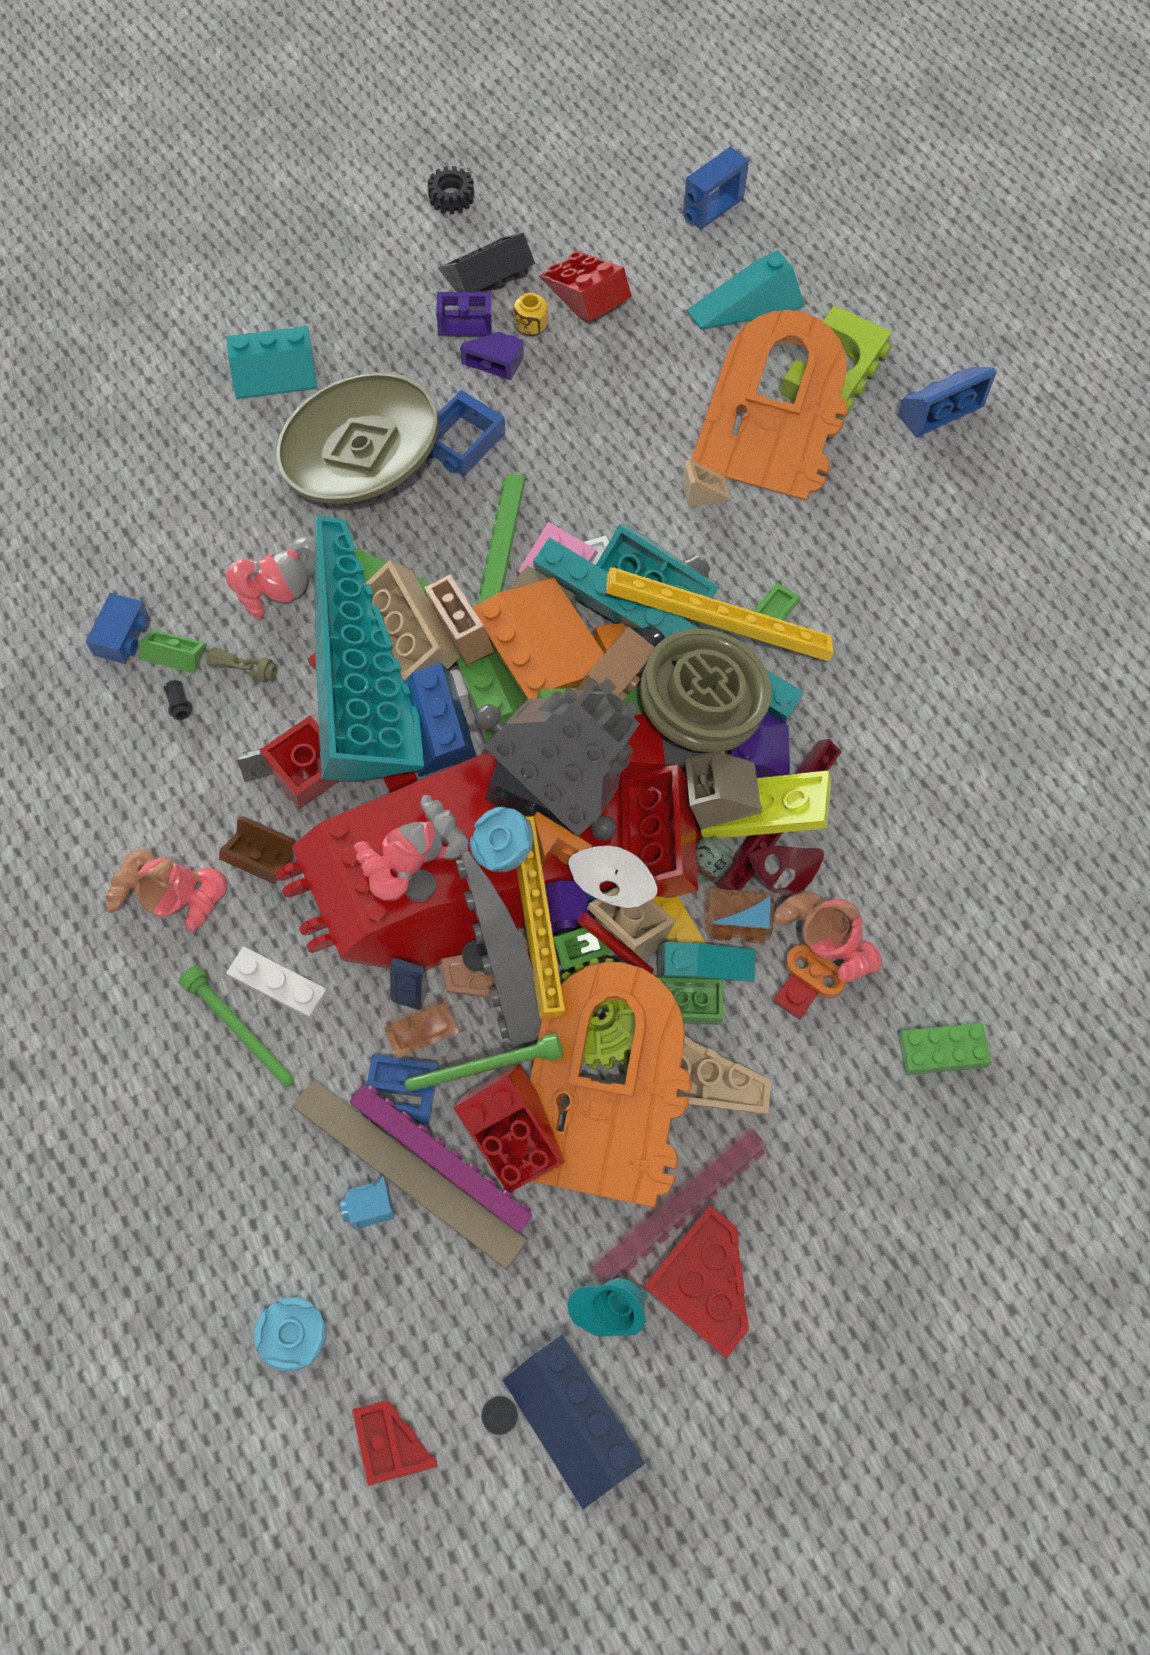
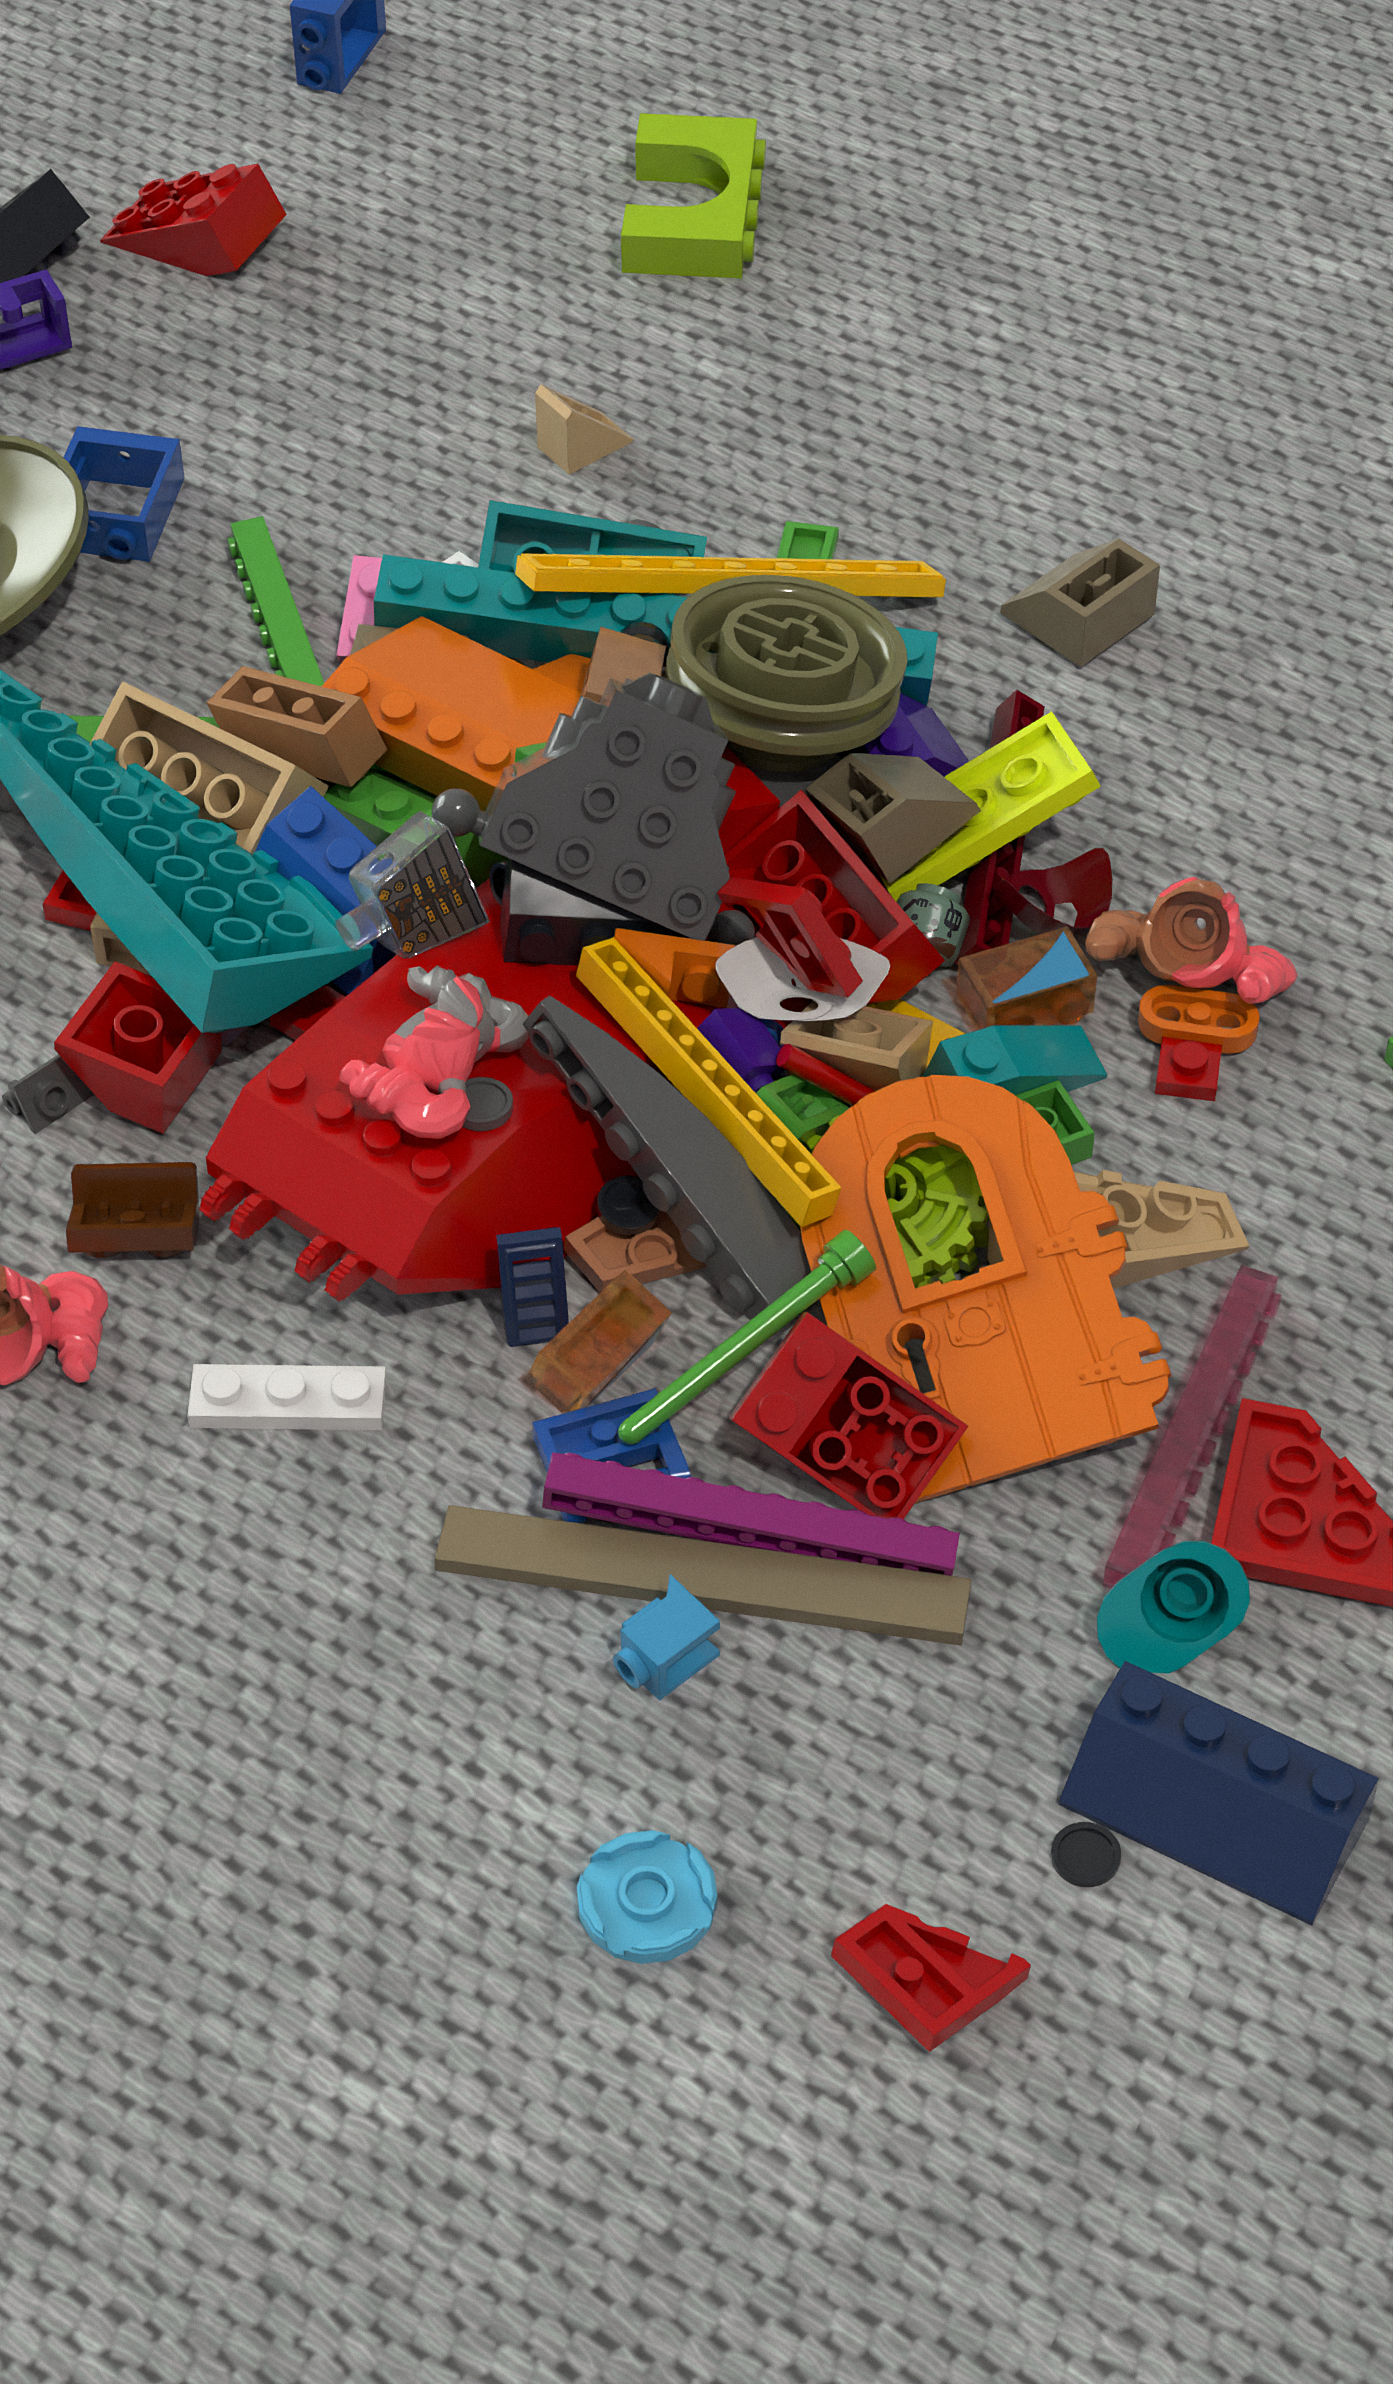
camera: 25 degrees left, 15 degrees down
(196, 981) = (139, 1450): bright green piece -> none
(450, 749) = (412, 892): none -> torso
(494, 354) = (95, 368): dark purple slope -> none
(501, 839) = (588, 974): medium azure tile -> none
(530, 313) = (127, 287): yellow head -> none
(617, 854) = (797, 933): none -> red wing
(756, 290) = (492, 142): teal wedge -> none
(777, 441) = (657, 329): orange door -> none
(898, 696) = (1088, 600): none -> dark tan slope
(946, 400) = (903, 184): blue slope -> none

